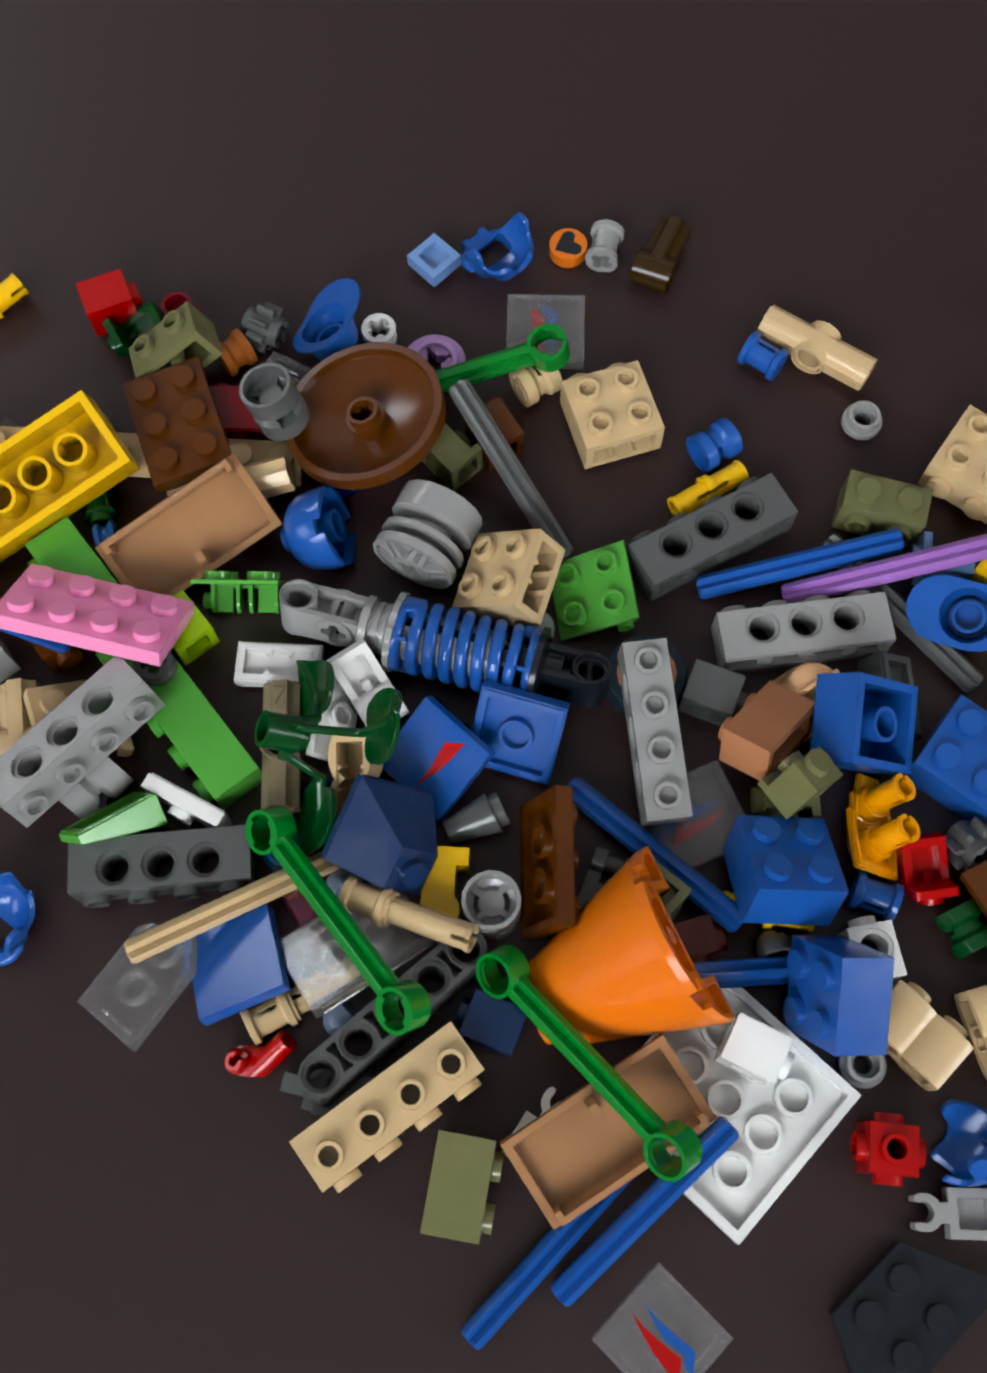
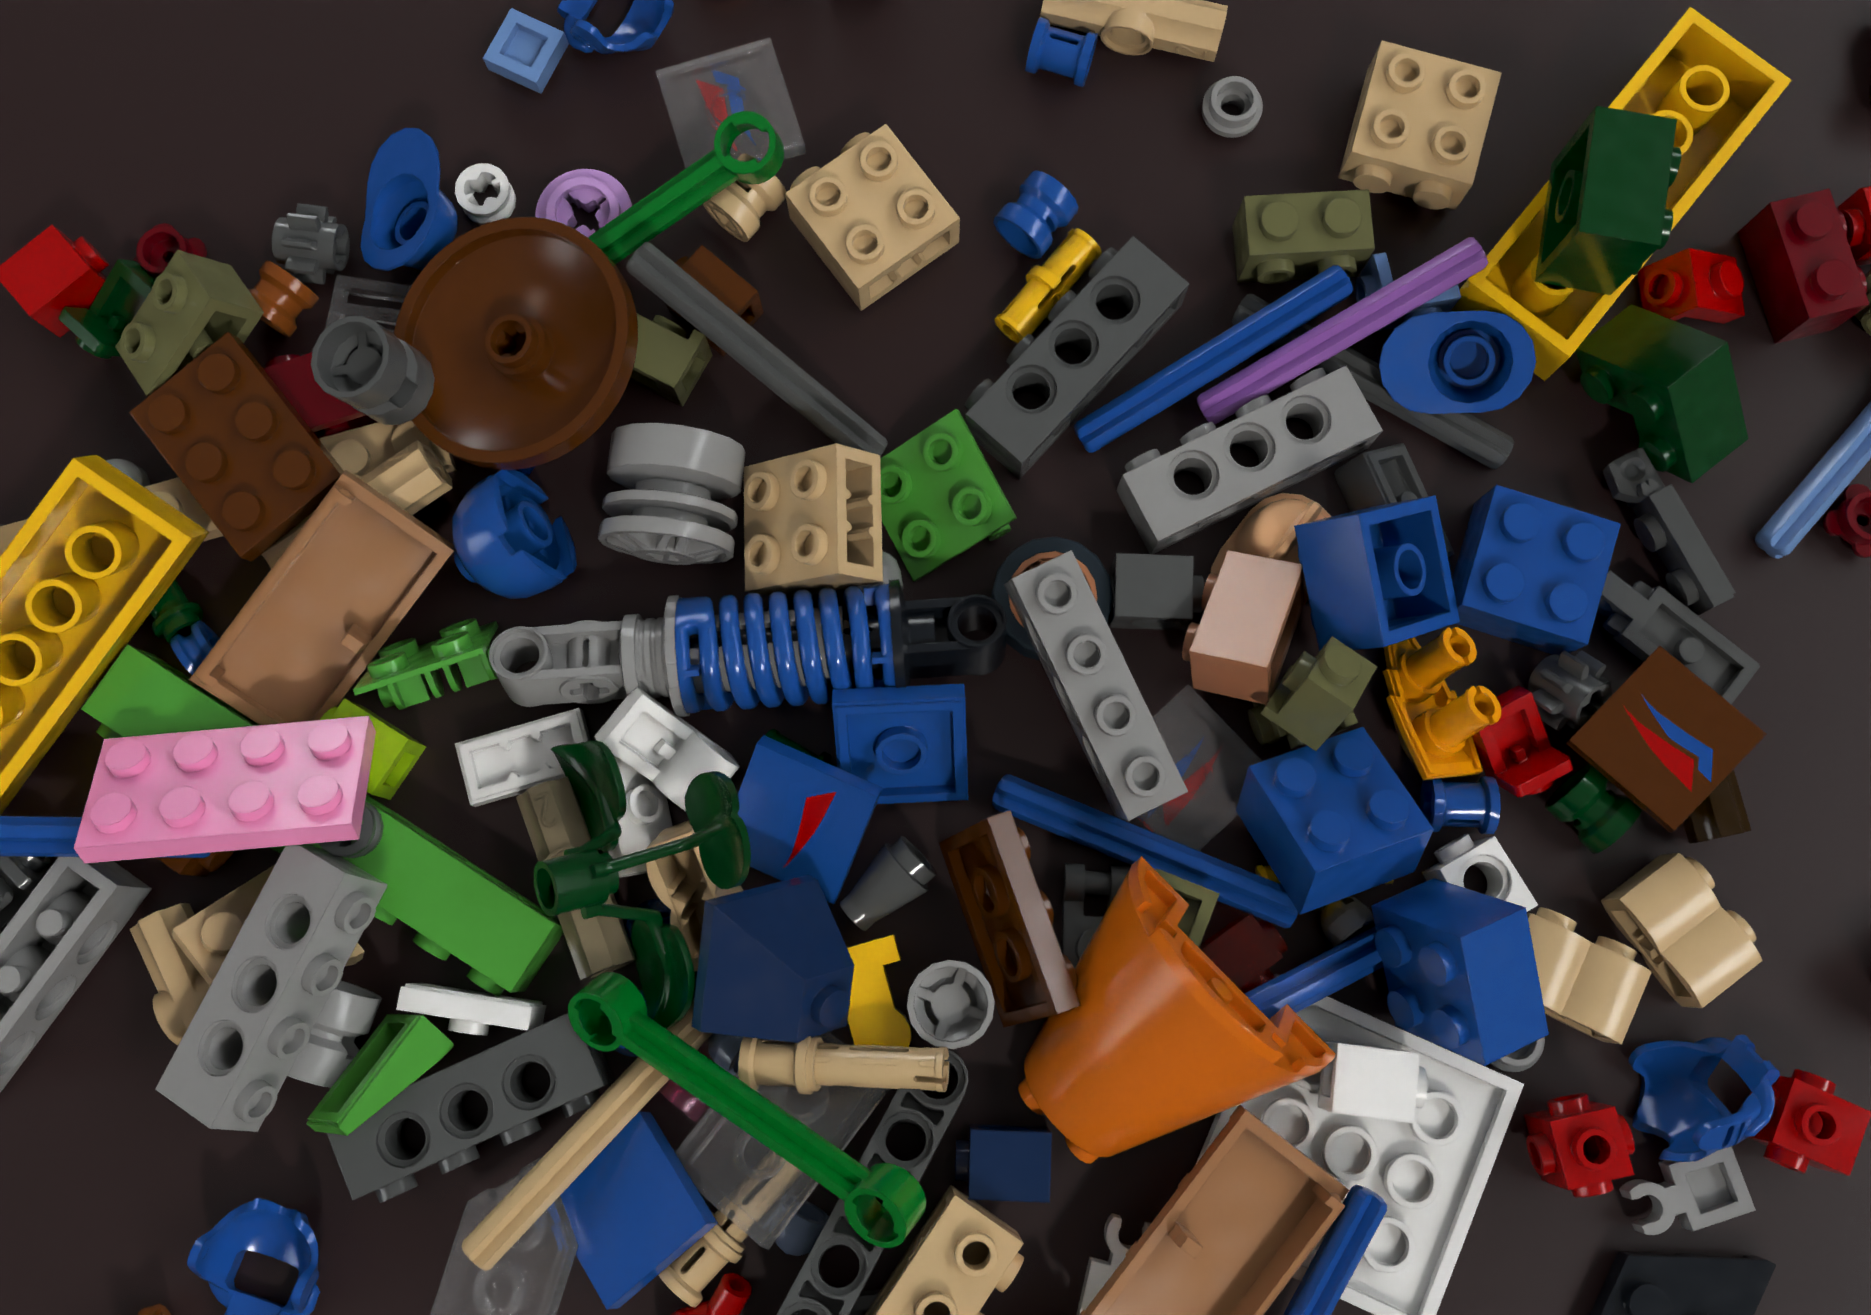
camera: 20 degrees left, 10 degrees up
(591, 1065) = (1282, 1252): green piece -> none

